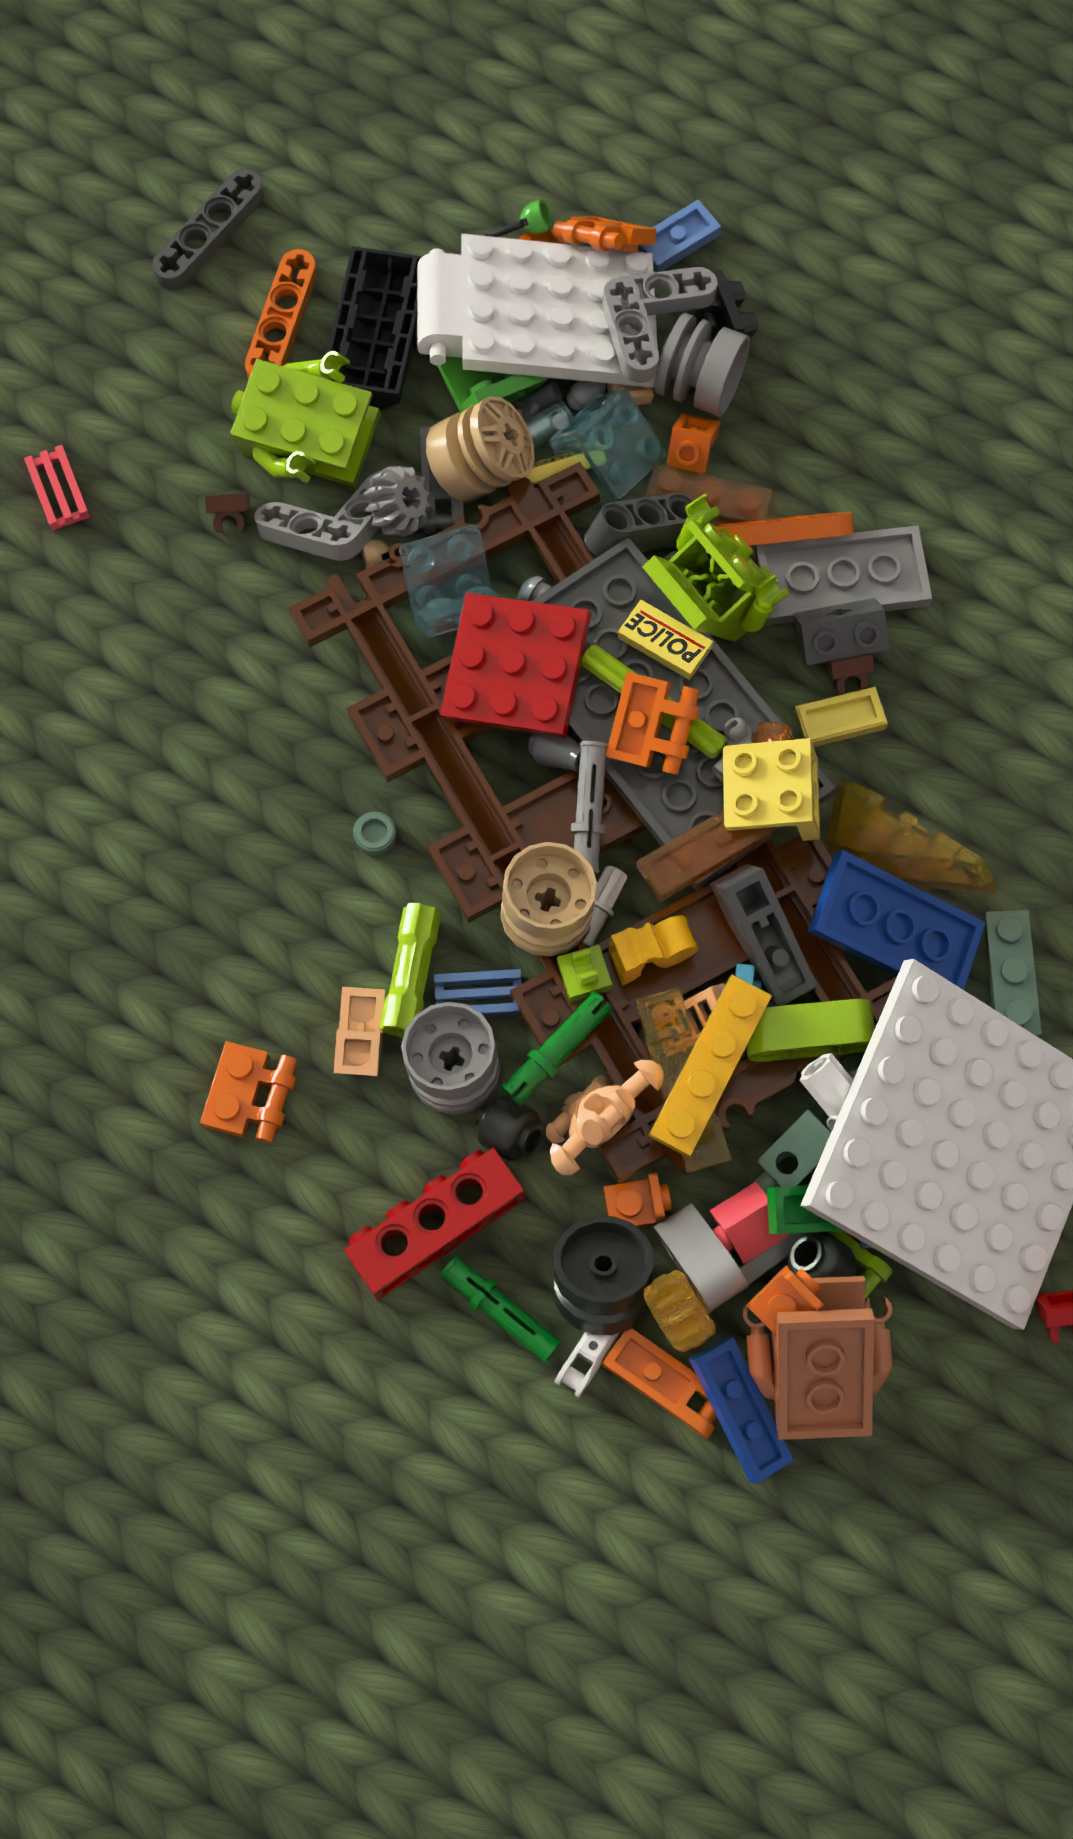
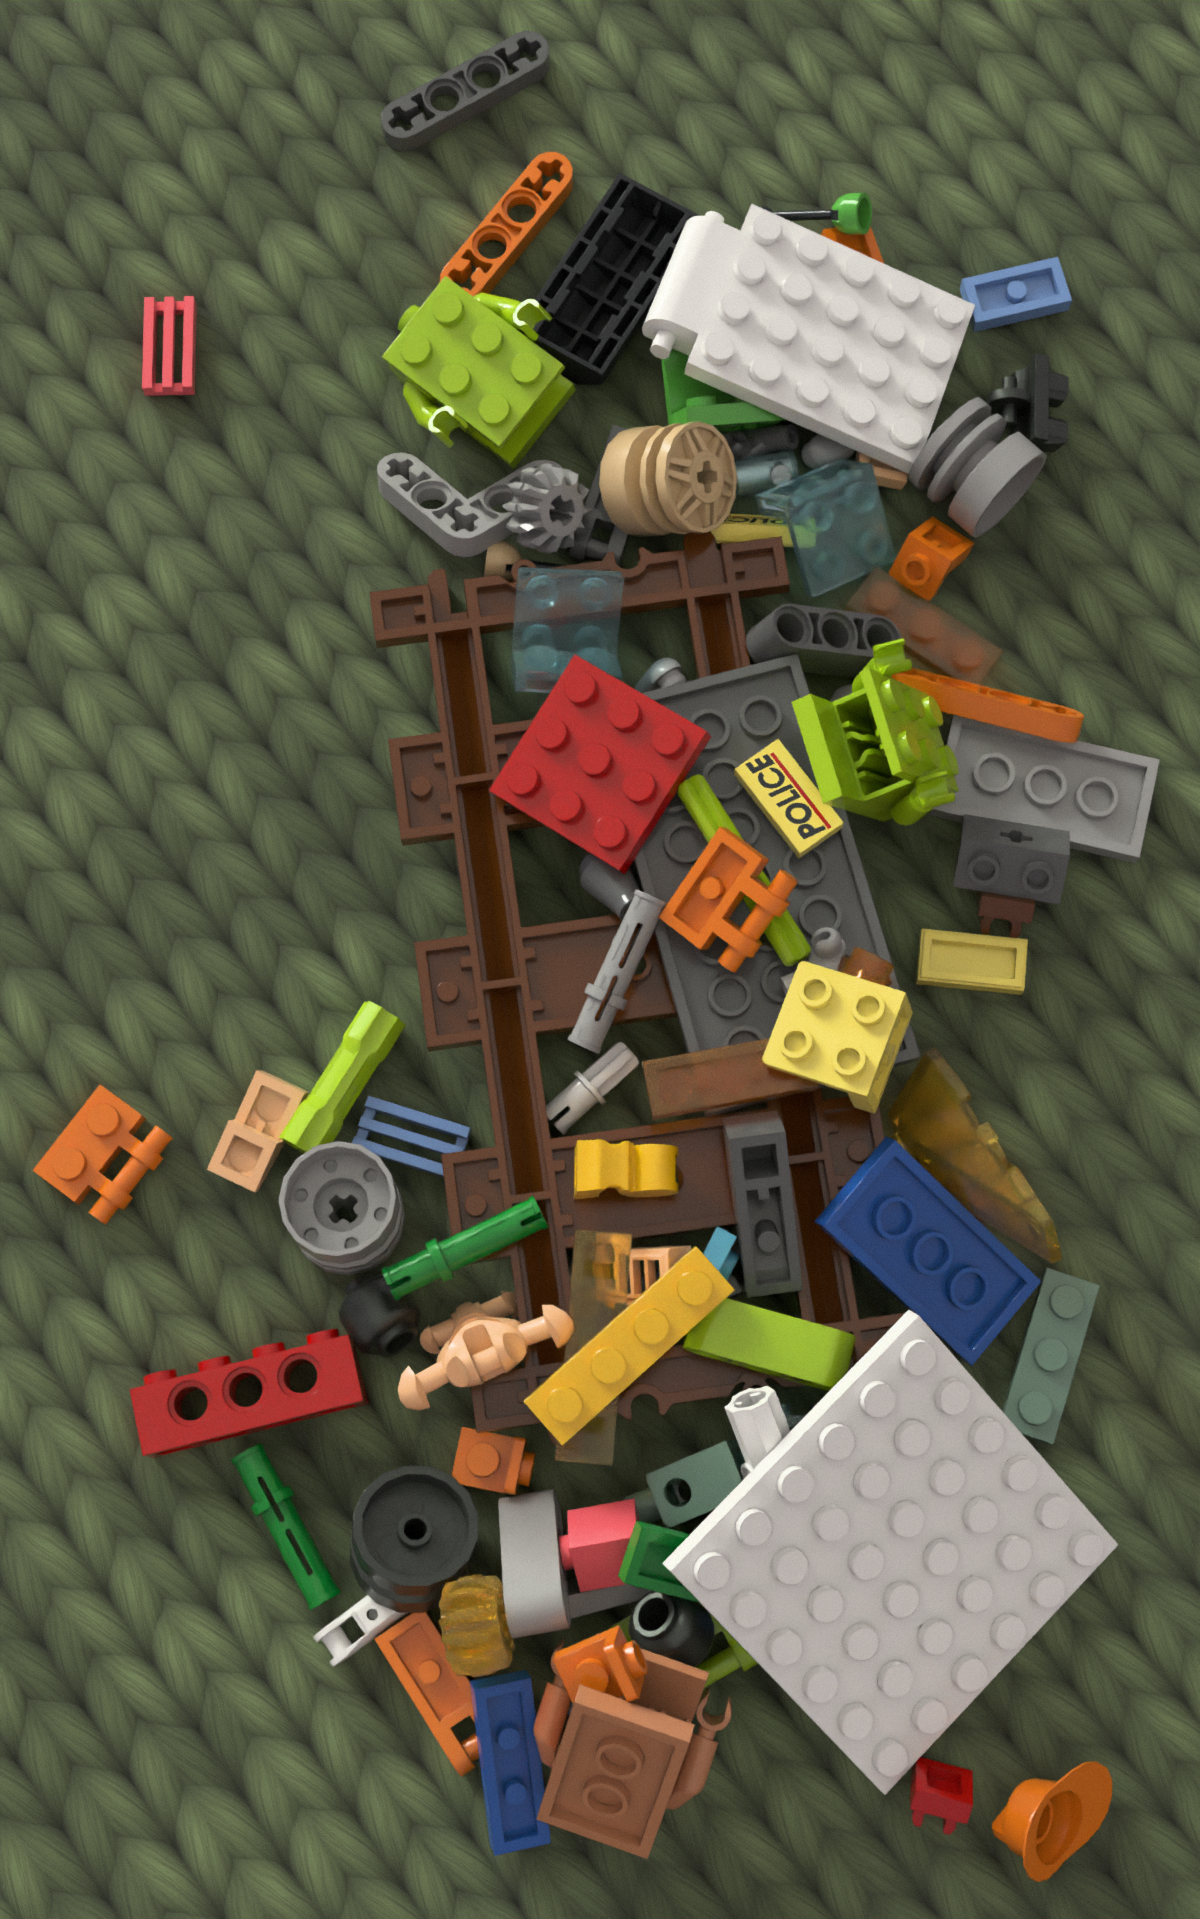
camera: 20 degrees right, 5 degrees up
(228, 505) = (354, 438): reddish brown tile -> none
(374, 833) = (368, 898): sand green tile -> none
(554, 877) = (518, 1036): tan wheel -> none
(584, 972) = (534, 1168): lime tile -> none
(604, 233) = (925, 261): orange plate -> none
(642, 304) = (932, 366): light grey beam -> none

